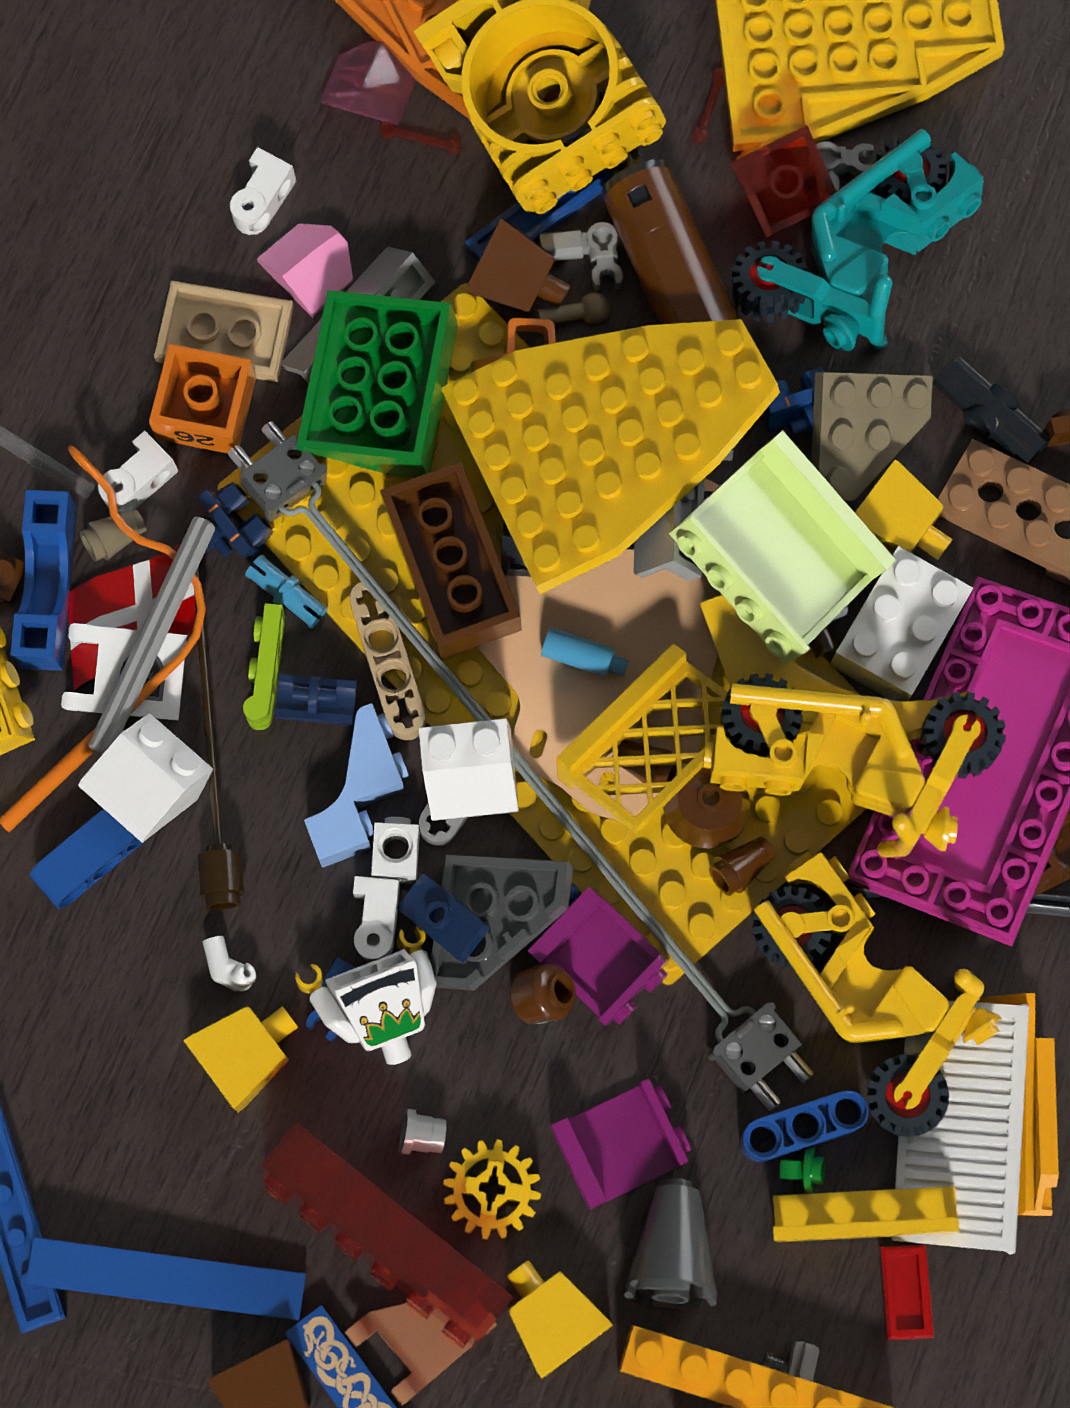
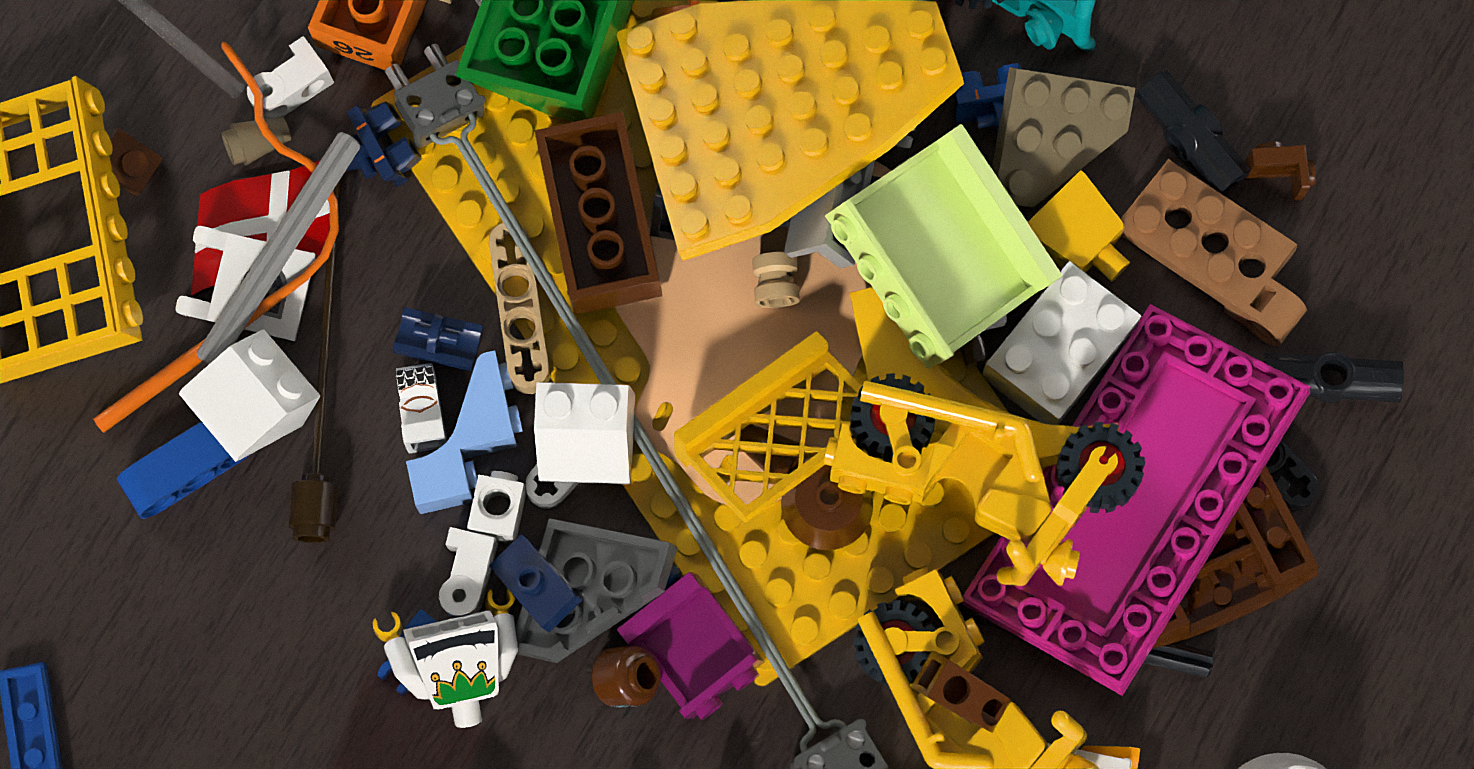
camera: 10 degrees right, 0 degrees up
(43, 612) = (170, 215): blue arch -> none
(226, 970) = (304, 606): white arm -> none
(242, 1052) = (307, 693): yellow torso -> none
(265, 668) = (391, 299): lime plate -> none
(286, 591) = (426, 222): dark azure pin -> none
(308, 768) = (420, 408): none -> white leg
(582, 653) = (722, 328): dark azure cylinder -> none
(626, 604) = (775, 281): none -> tan wheel
(741, 865) = (853, 572): reddish brown cone -> none
(863, 964) = (960, 692): none -> reddish brown leg

